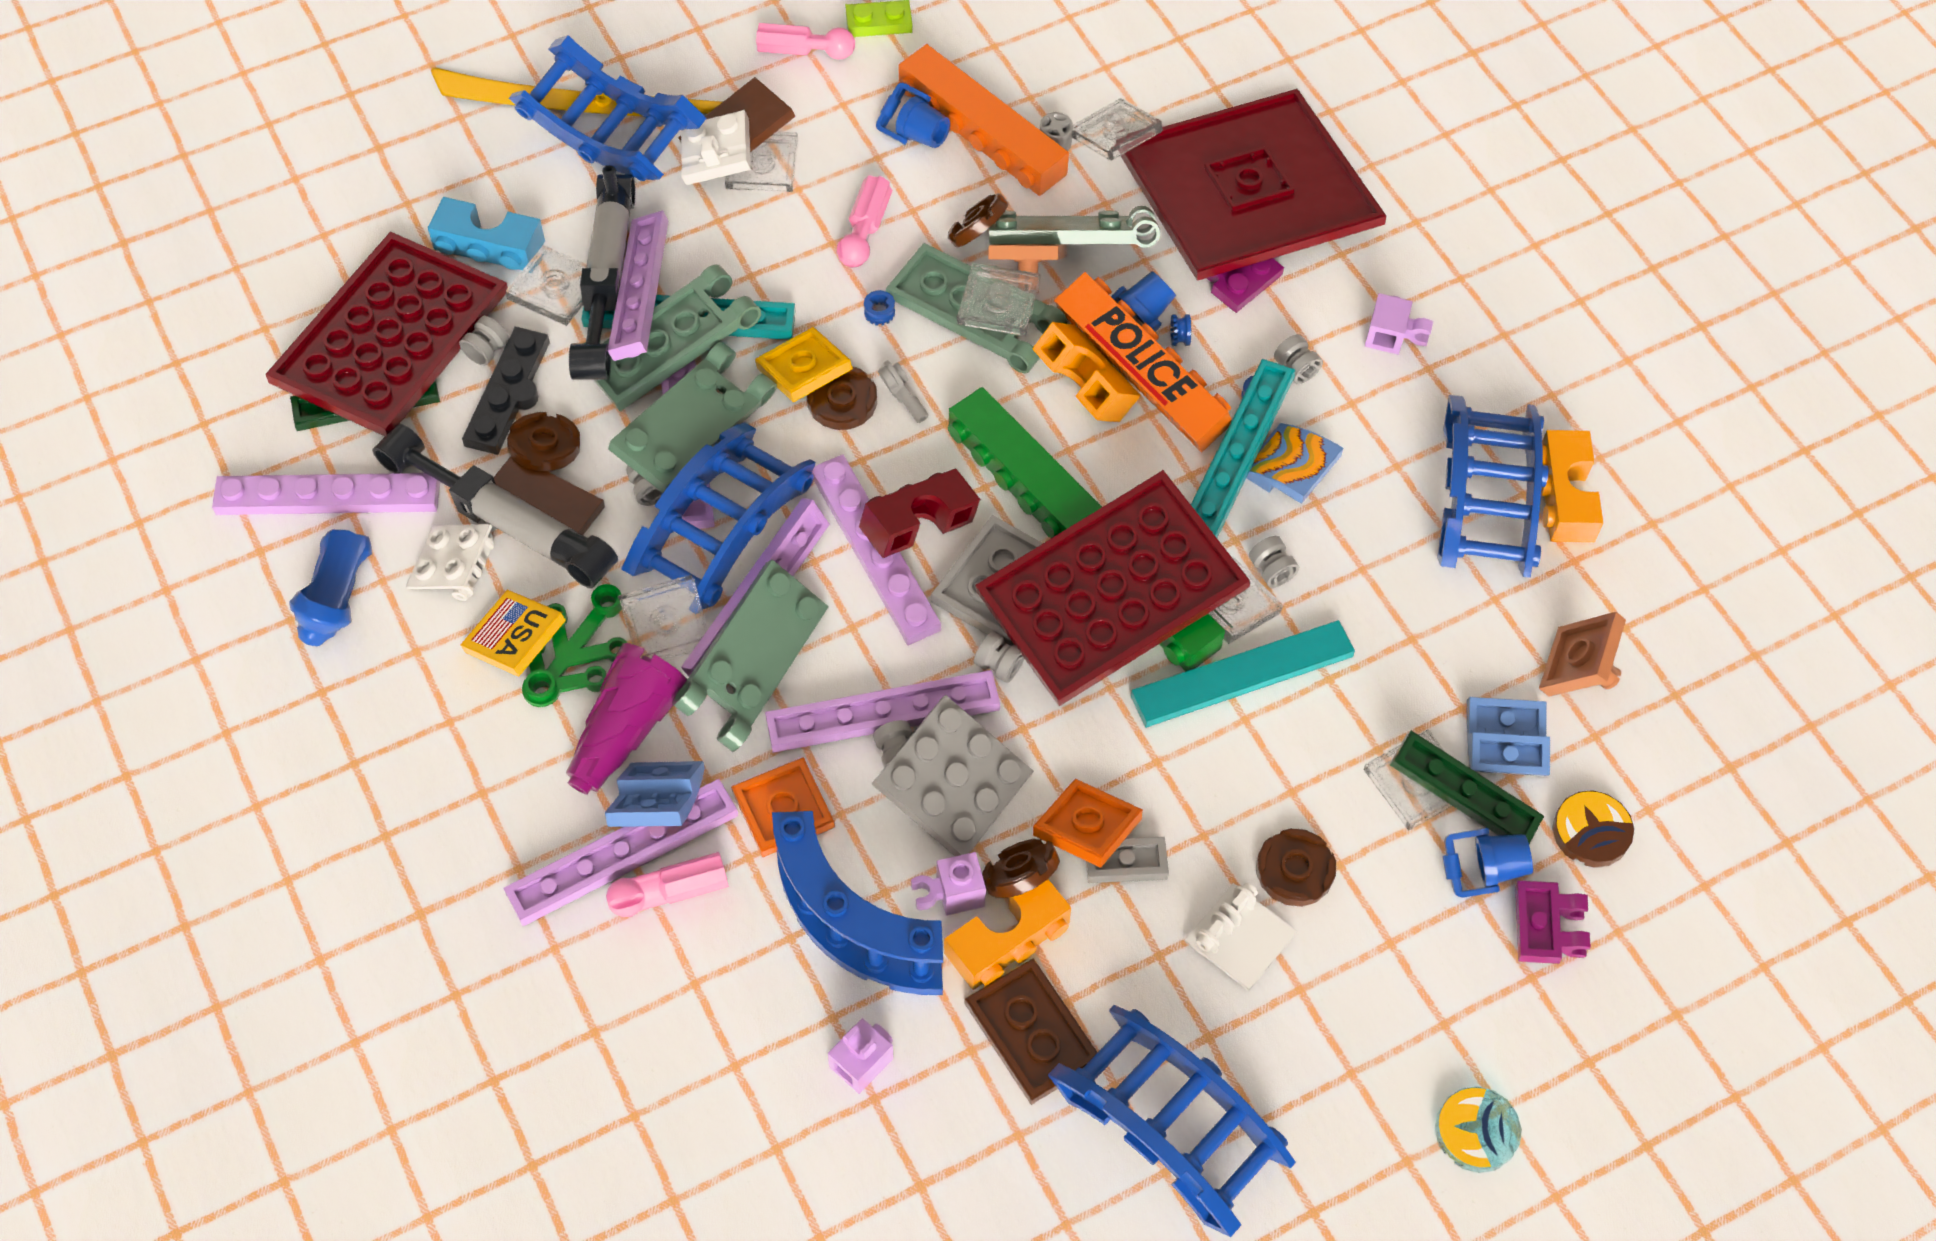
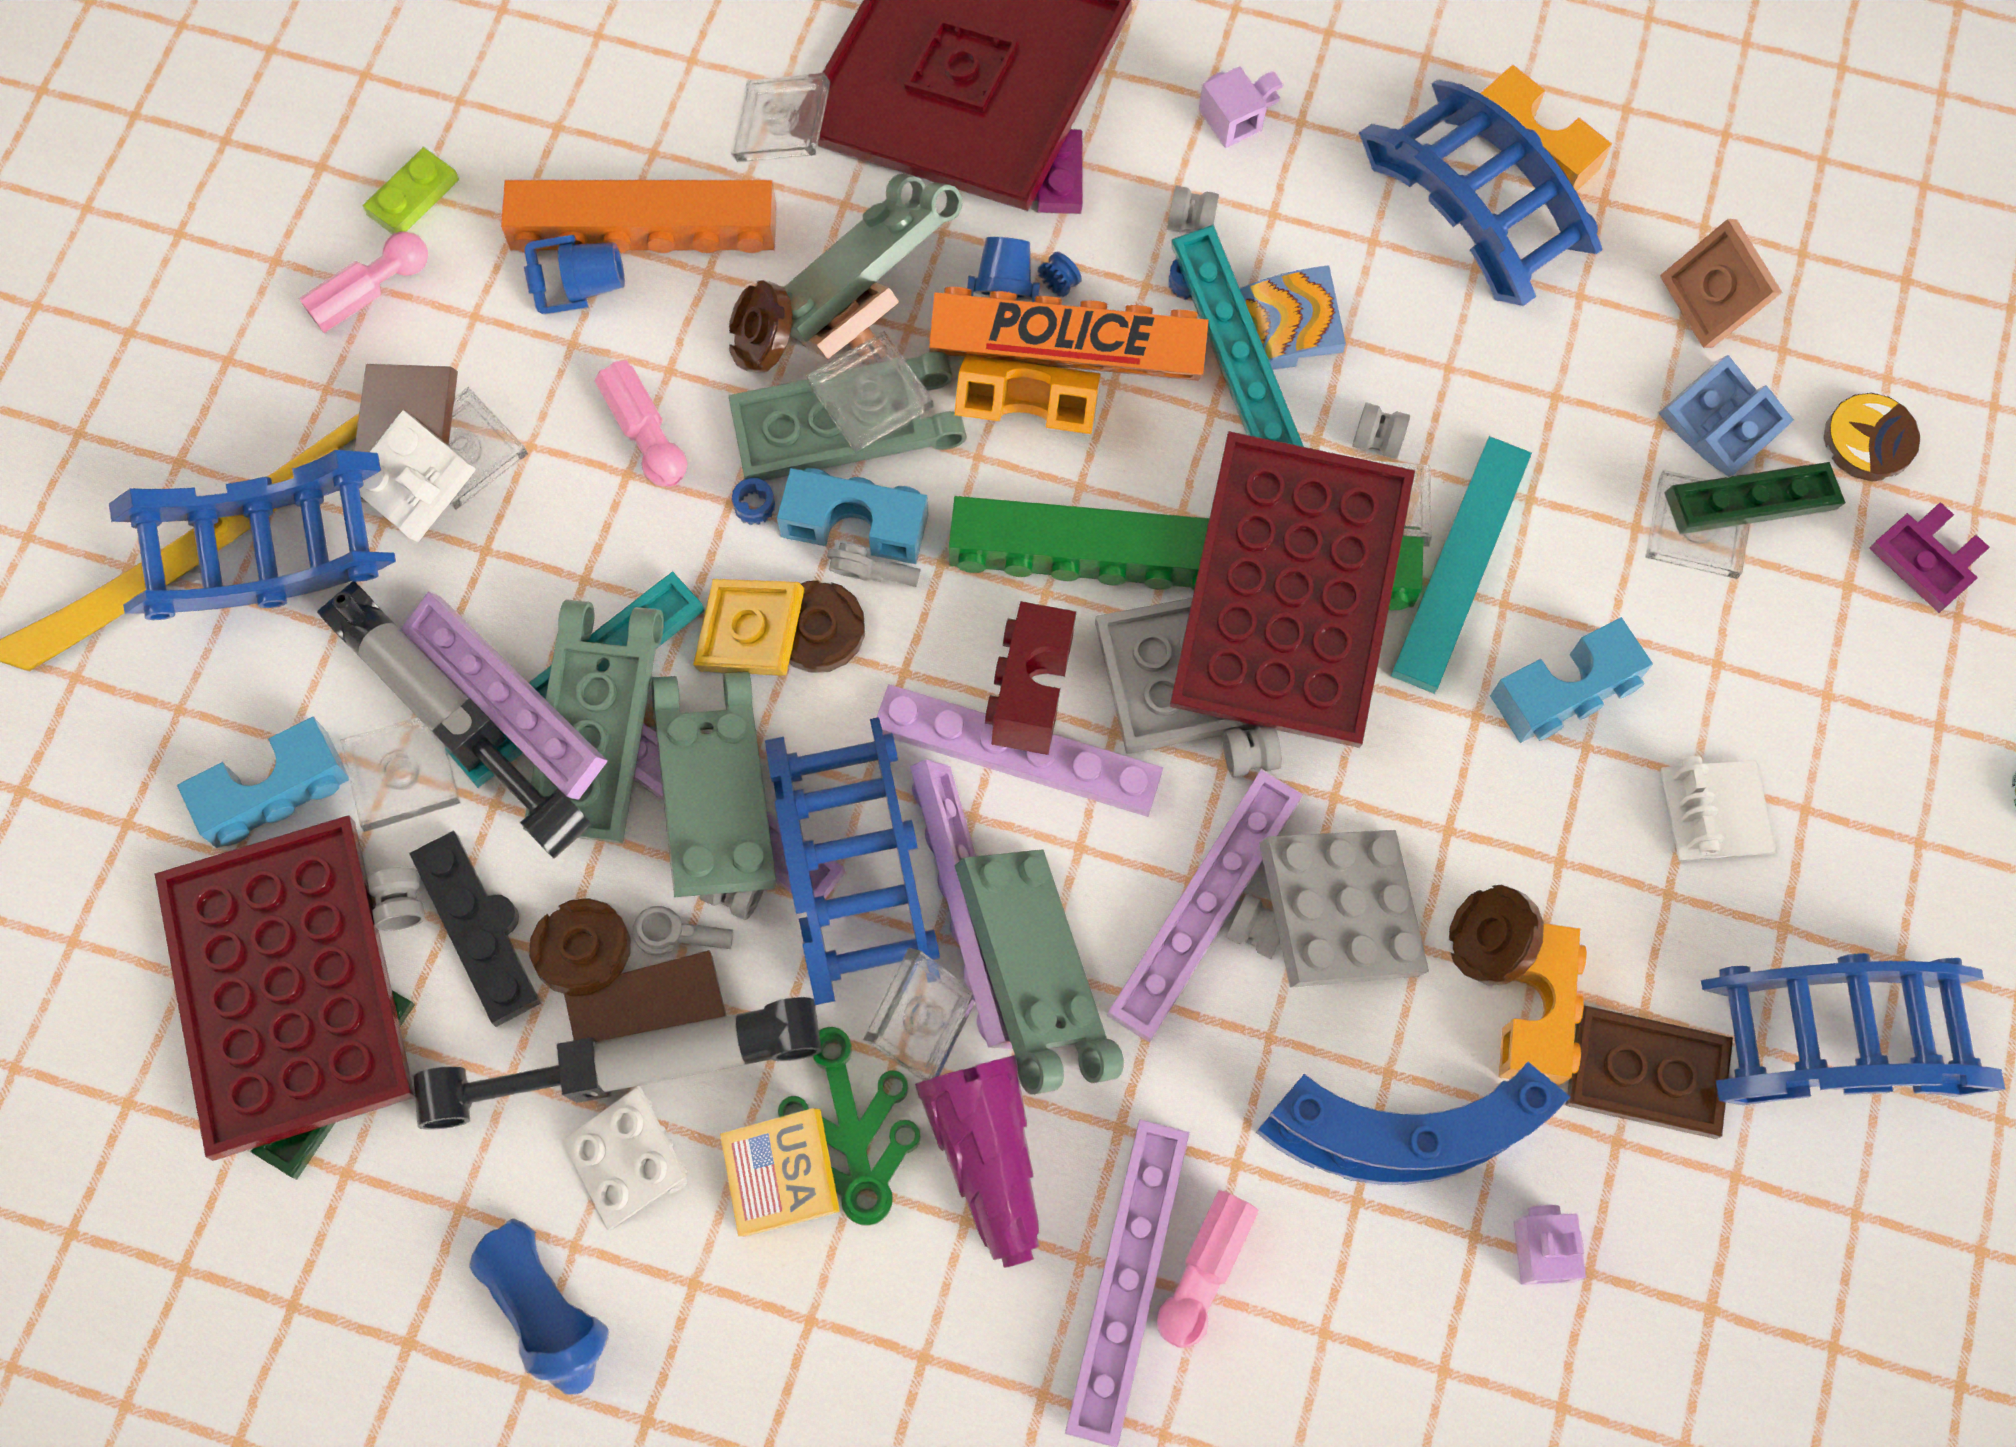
camera: 45 degrees left, 10 degrees up
(325, 494) = (408, 1220): lavender plate -> none
(591, 470) = (661, 930): none -> light grey plate
(655, 794) = (1102, 1195): medium blue slope -> none
(780, 790) = (1217, 1085): orange tile -> none
(908, 334) = (818, 501): none -> dark azure arch
(956, 883) = (1454, 1007): lavender brick -> none
(1058, 128) = (722, 159): light grey wheel -> none
(1087, 822) = (1498, 833): orange tile -> none
(1133, 861) = (1560, 835): light grey plate -> none
(1198, 785) = (1538, 702): none -> dark azure arch
(1304, 875) = (1691, 702): reddish brown tile -> none
(1498, 859) = (1840, 540): blue piece -> none

